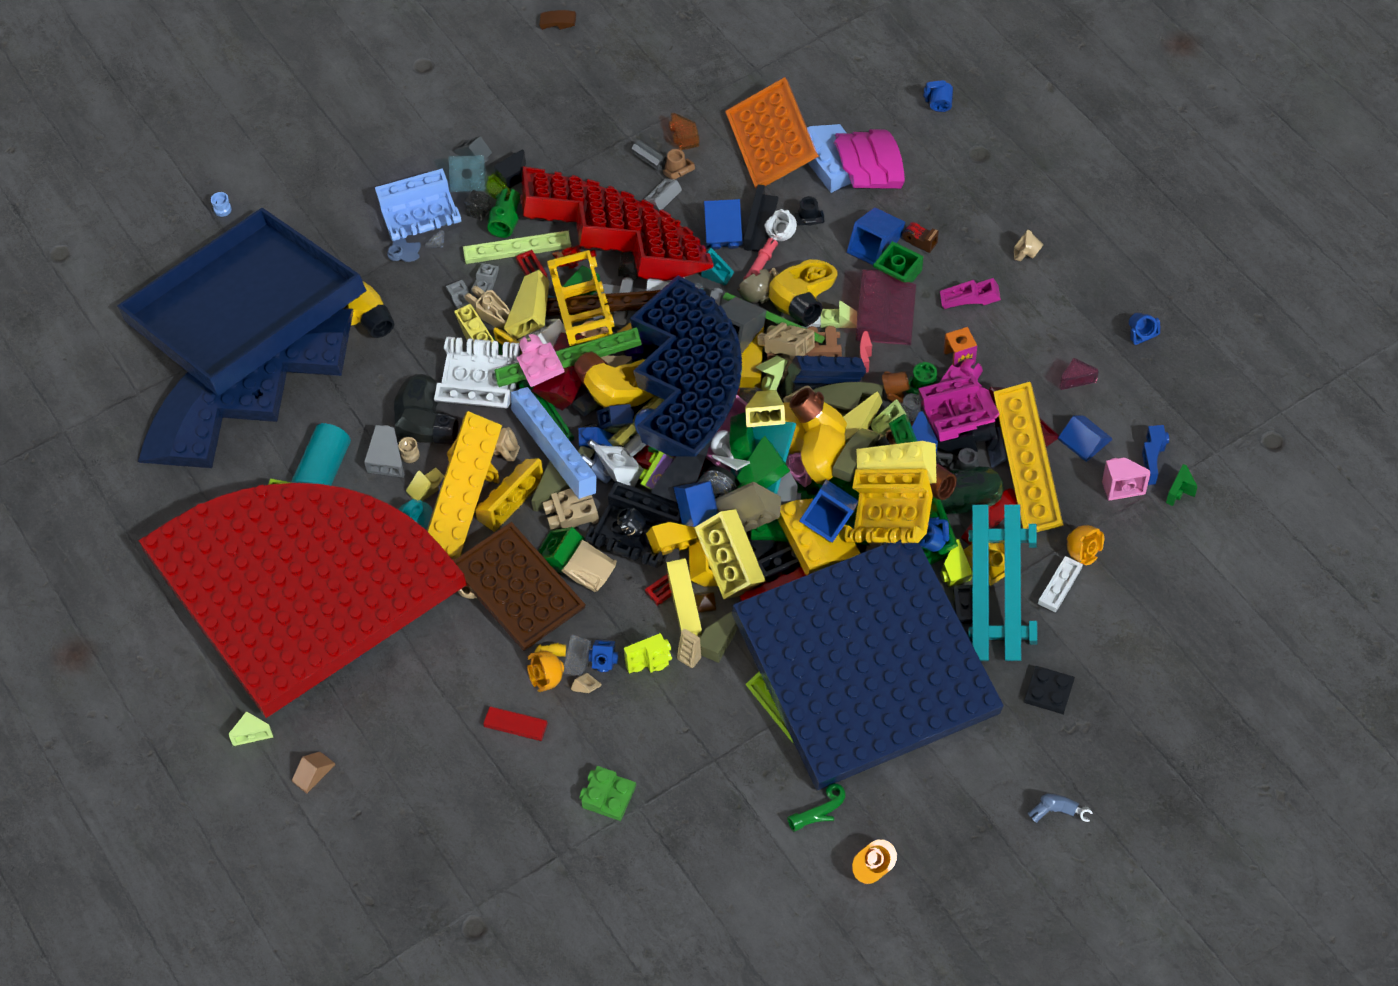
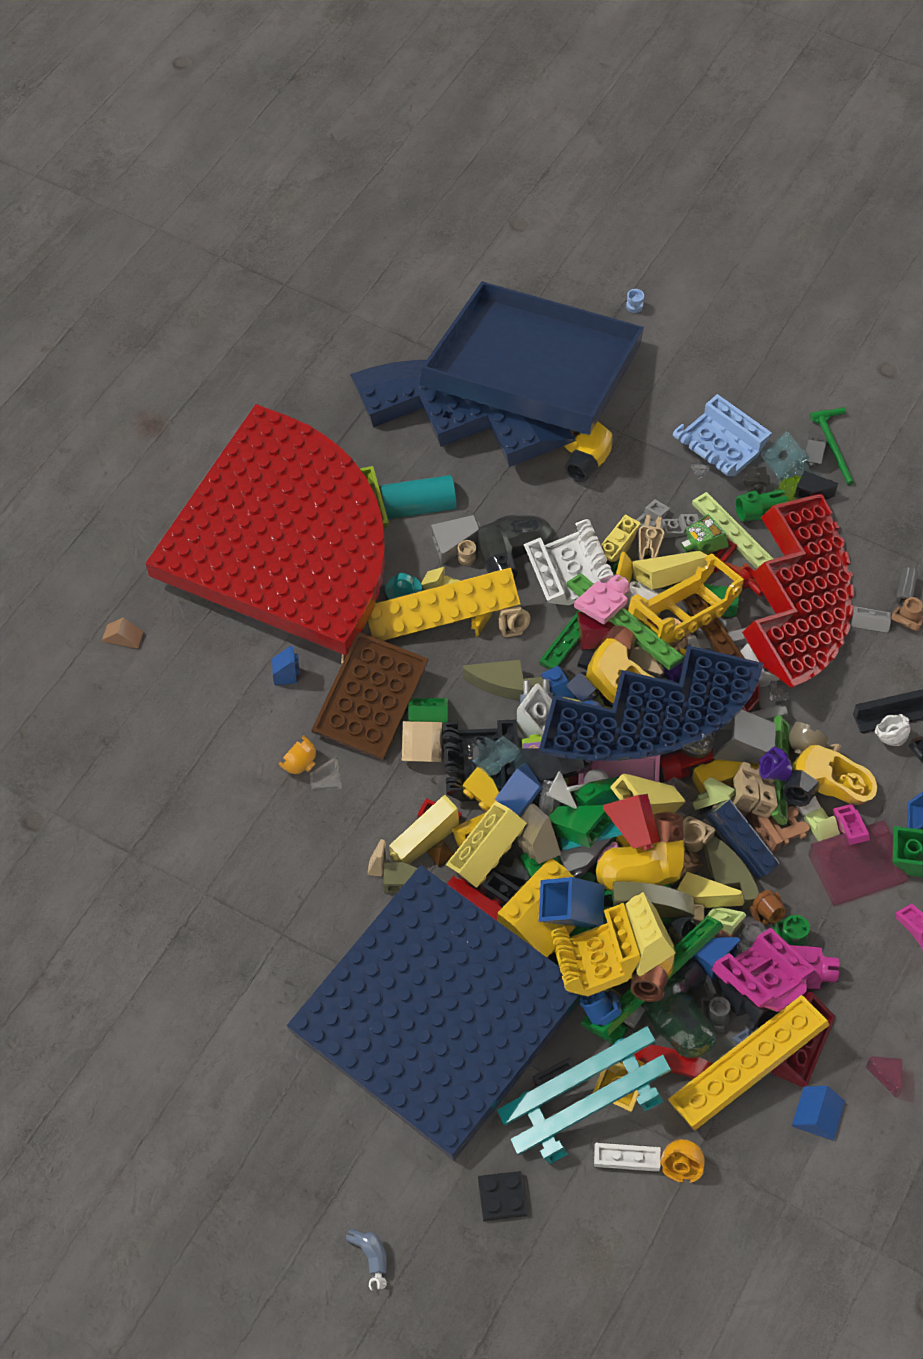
camera: 60 degrees right, 0 degrees up
(249, 730) = (136, 571): yellowish green slope -> none
(404, 251) = (673, 451): sand blue plate -> none
(441, 132) = (822, 417): none -> green bar
(443, 642) = (285, 667): none -> blue slope
(510, 494) = (461, 647): yellow slope -> none
(512, 265) = (705, 536): none -> bright green torso
(515, 723) = (239, 760): red tile -> none
(553, 443) = (527, 652): light blue brick -> none
(556, 648) = (323, 753): yellow arm -> none
(570, 510) = (477, 702): tan hips -> none
(585, 684) = (306, 796): tan slope -> none
(603, 655) = (336, 794): blue brick -> none
(607, 793) = (204, 861): bright green plate -> none
(644, 500) = (495, 755): none -> clear light blue piece
(649, 653) = (355, 828): neon yellow plate -> none
(720, 272) = (810, 698): teal slope -> none
(723, 223) = (863, 680): blue slope -> none
(763, 256) = (848, 732): coral pin -> none
(780, 312) = (773, 767): none -> dark purple piece
(792, 421) = (635, 820): none -> red slope
(799, 820) = (264, 1042): green plant -> none
(855, 291) = (851, 824): none -> dark pink slope
(865, 349) = (796, 864): coral slope -> none
(874, 861) = (231, 1108): light orange piece -> none
(956, 567) = (590, 1046): neon yellow slope -> none
(962, 344) = (846, 946): orange piece -> none
(1124, 479) = (779, 1165): bright pink slope -> none
(1156, 443) = (835, 1183): blue slope -> none
(1183, 484) = (815, 1227): green slope -> none

